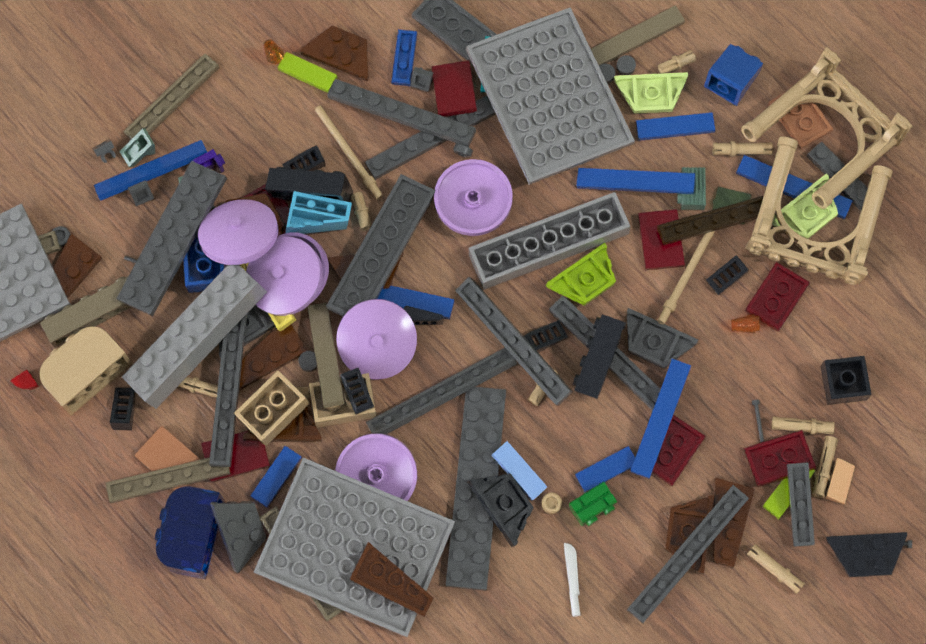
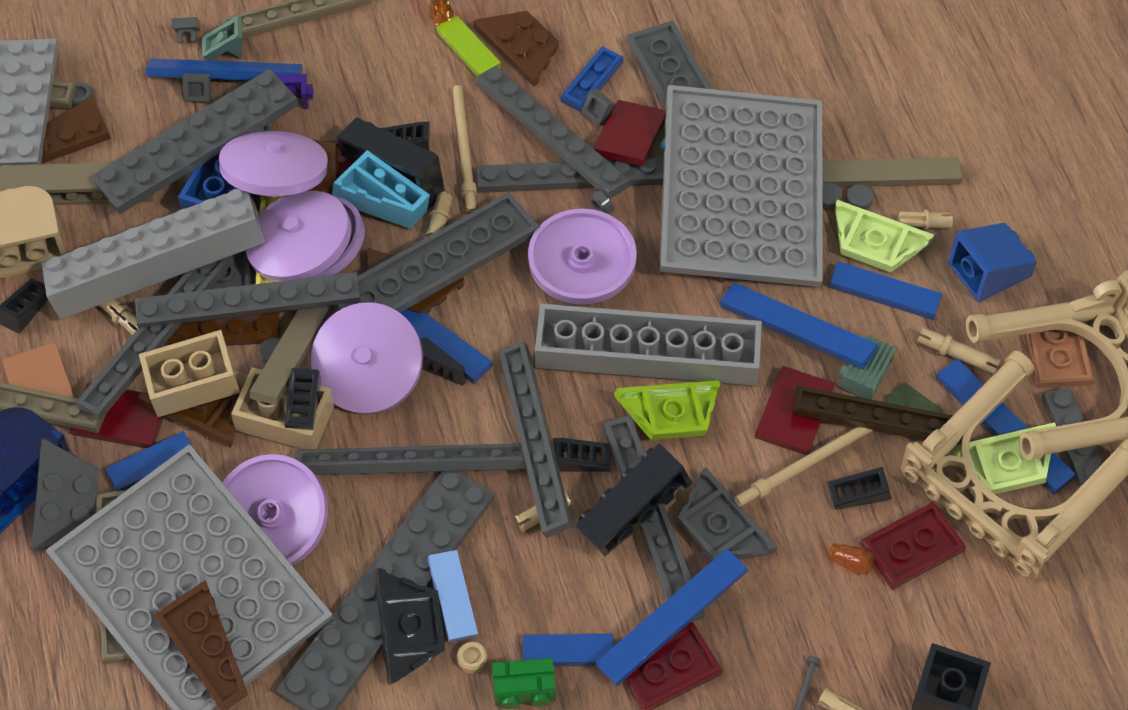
camera: 25 degrees right, 15 degrees down
(278, 338) = (247, 300): none -> dark grey plate

